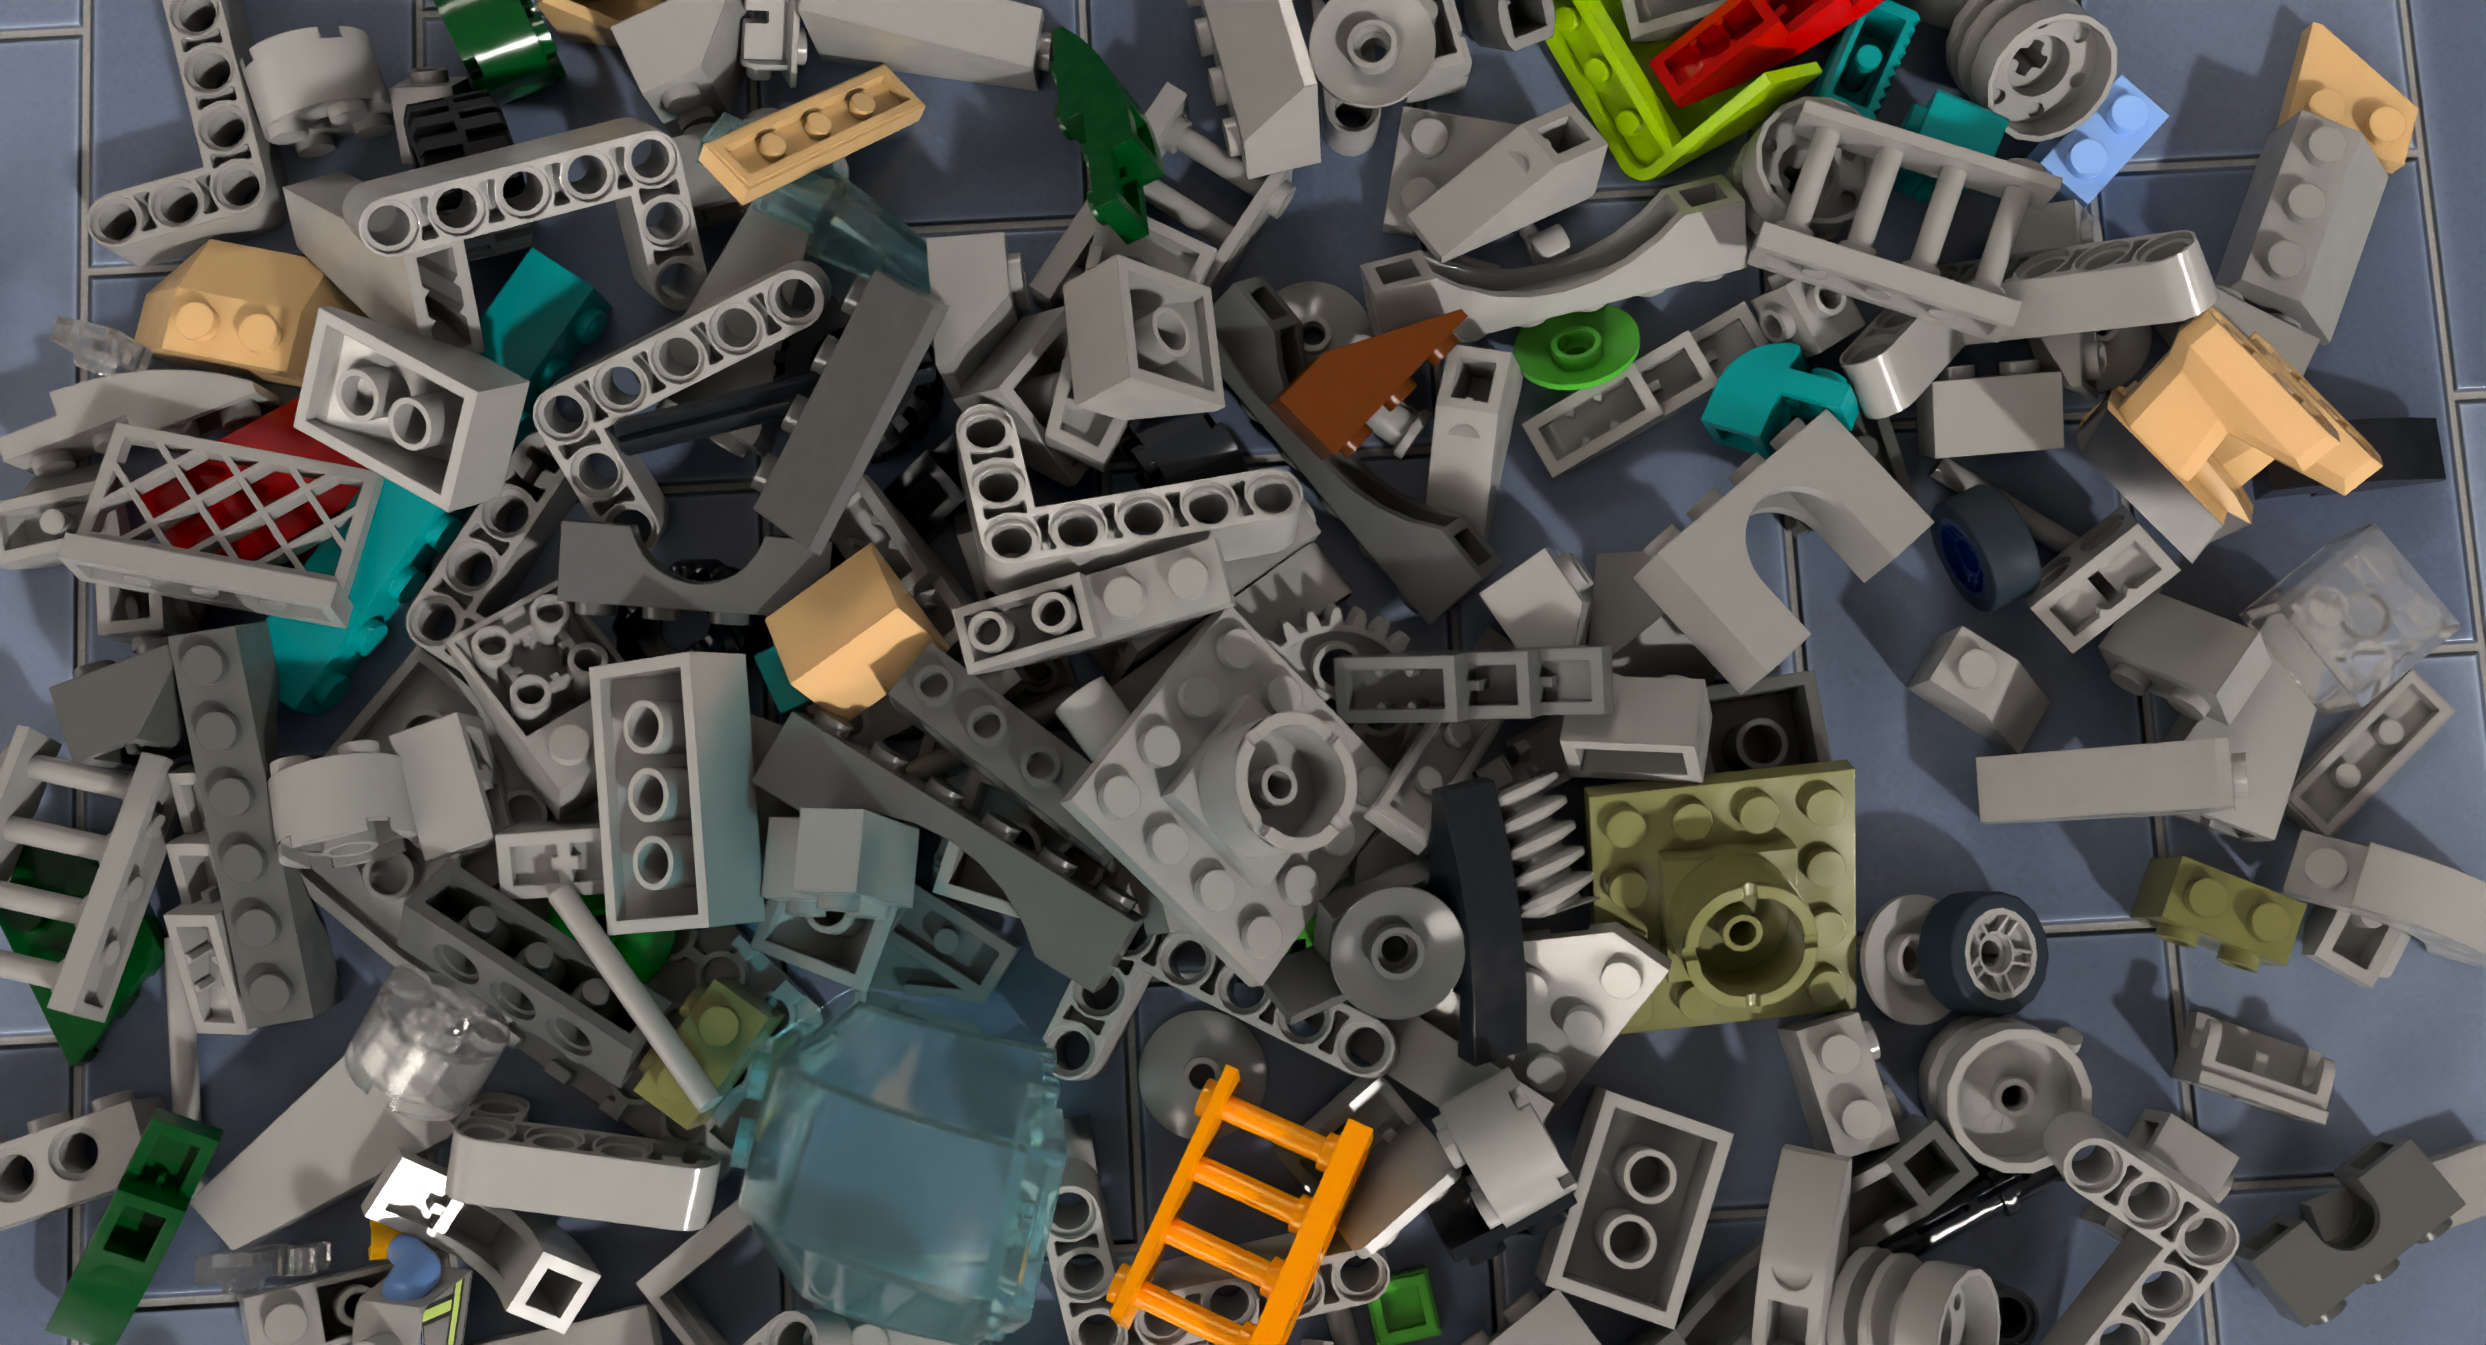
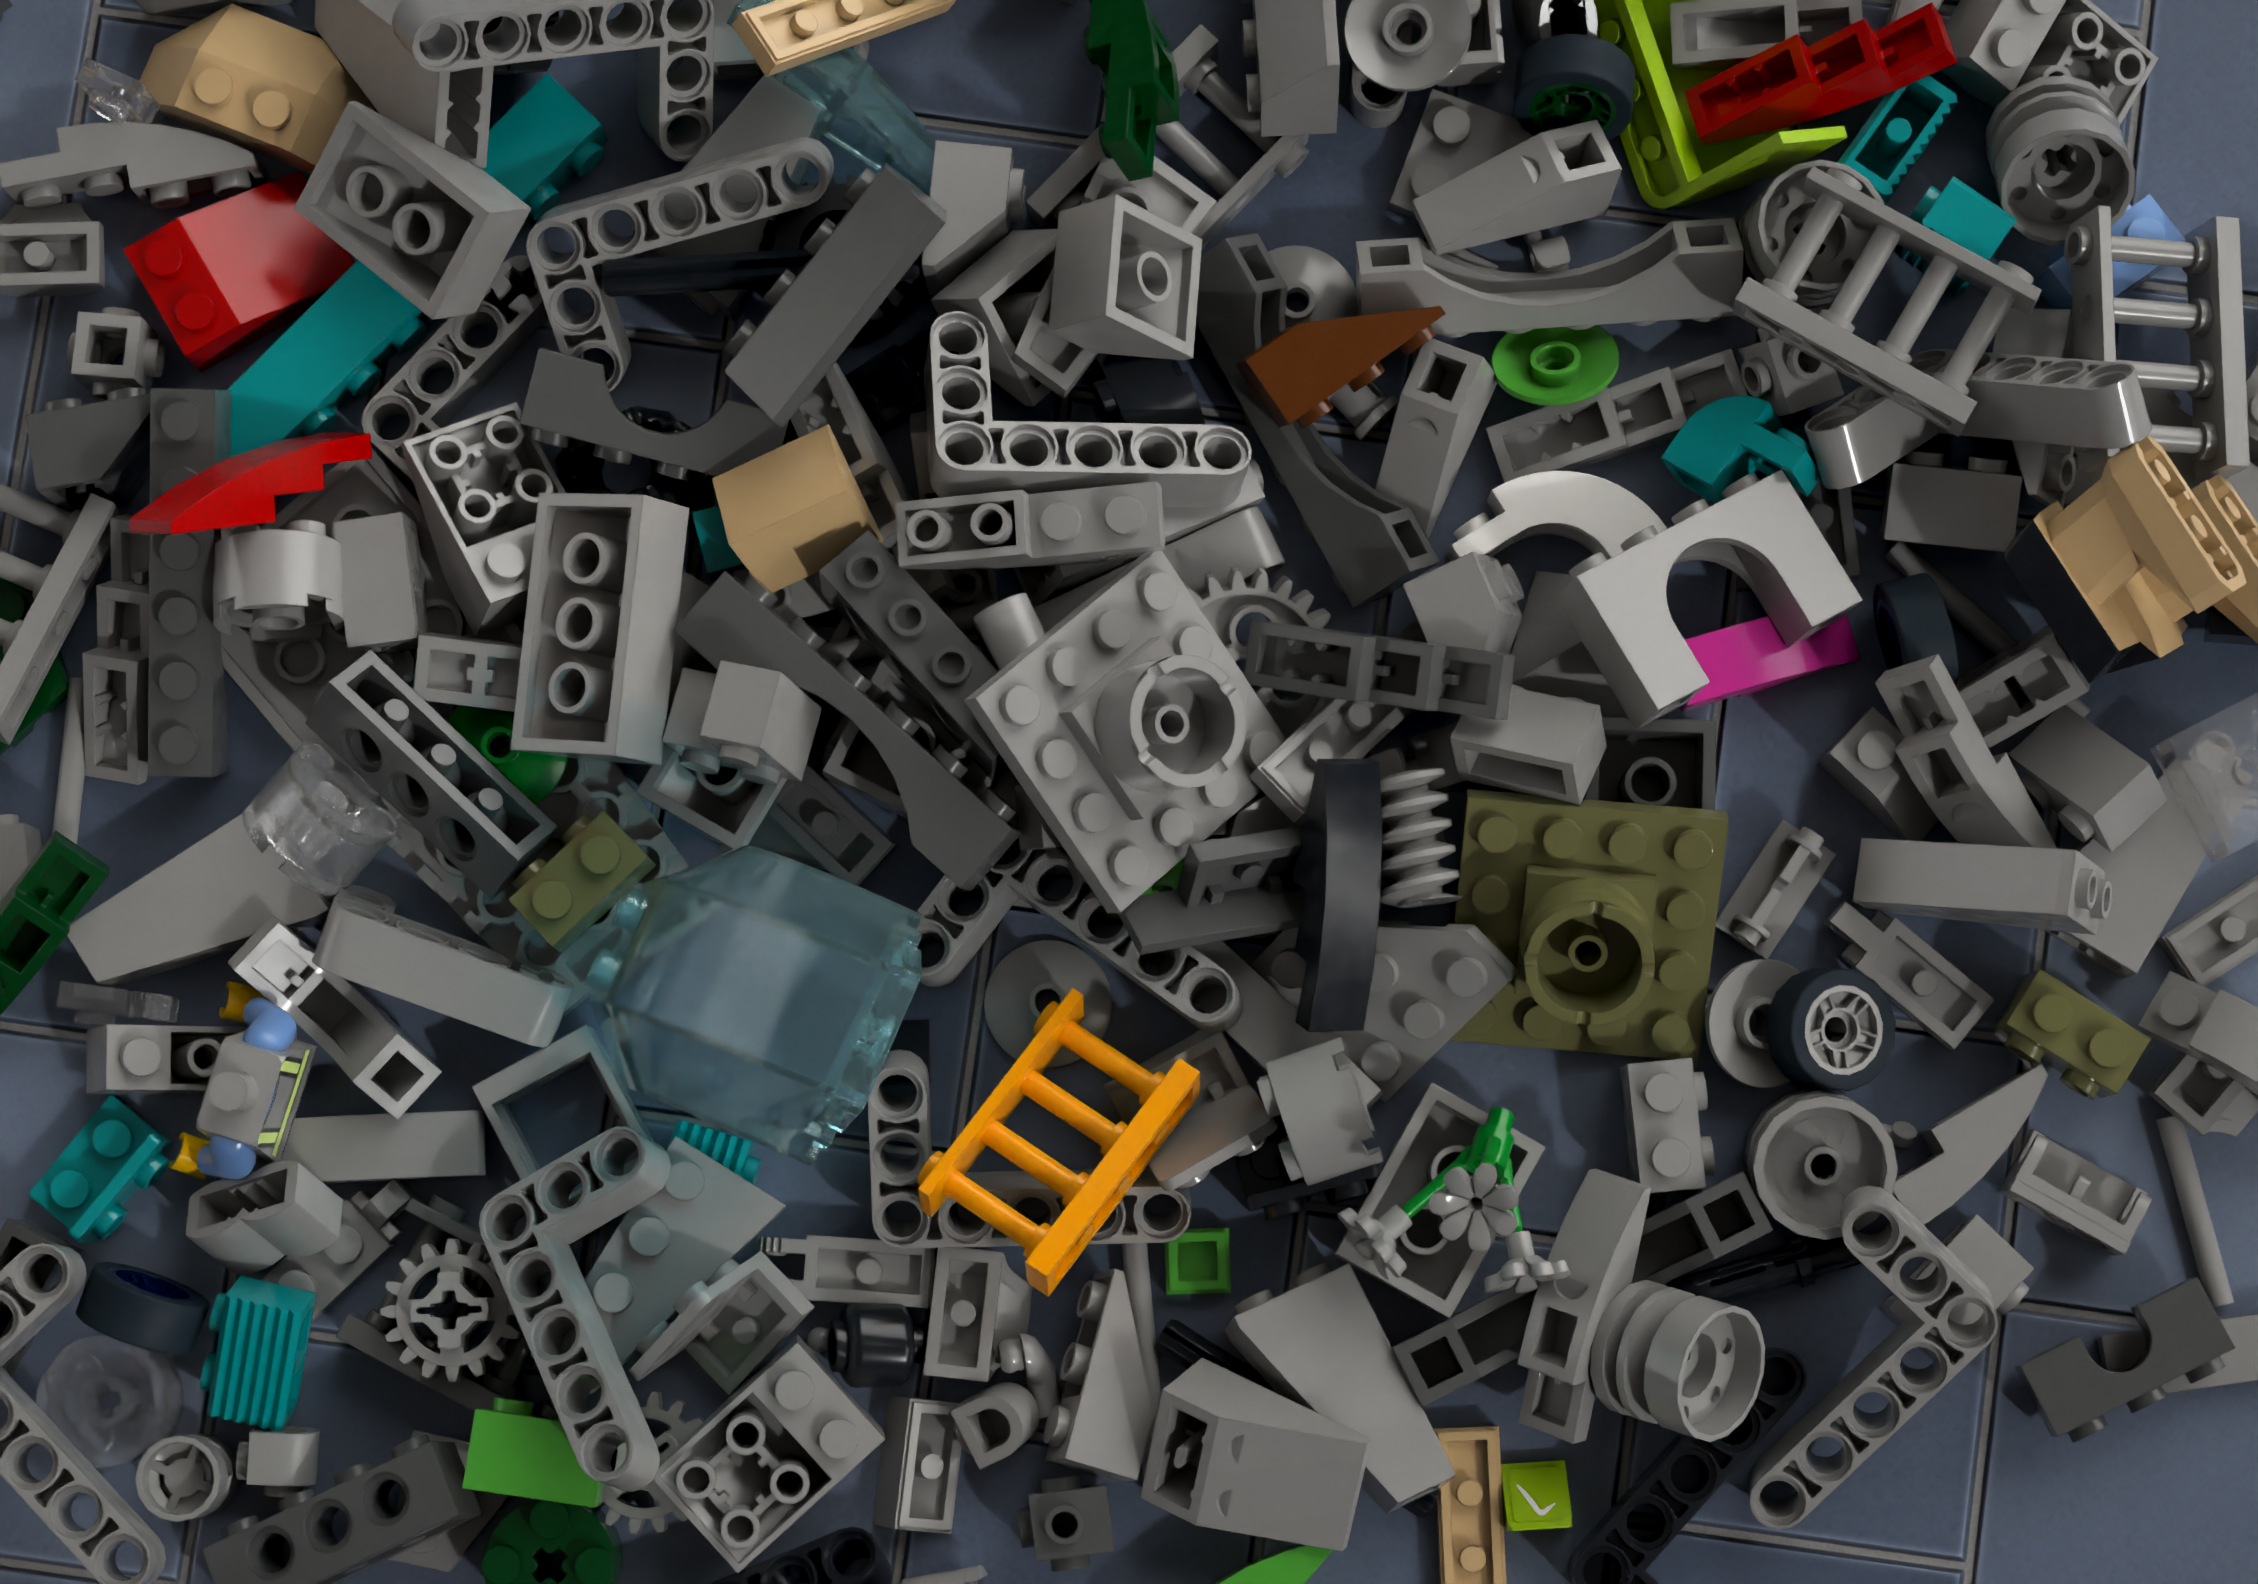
camera: 15 degrees right, 0 degrees up
(214, 578) = (193, 339): light grey fence -> none
(283, 719) = (244, 486): none -> red slope
(635, 998) = (526, 812): light grey bar -> none
(1415, 977) = (1261, 938): dark grey dish -> none
(1541, 70) = (1574, 82): none -> black wheel
(1613, 482) = (1557, 504): none -> white arch
(1698, 1236) = (1471, 1206): none -> light grey plant
(1835, 595) = (1756, 658): none -> dark pink slope
(1896, 819) = (1775, 888): none -> light grey hinge
(2046, 880) = (1910, 973): none -> light grey hinge
(2058, 669) = (1951, 764): none -> light grey slope
(2144, 1037) = (1968, 1145): none -> light grey slope
(2209, 176) = (2210, 319): none -> light grey fence
(2367, 1056) = (2195, 1211): none -> light grey bar

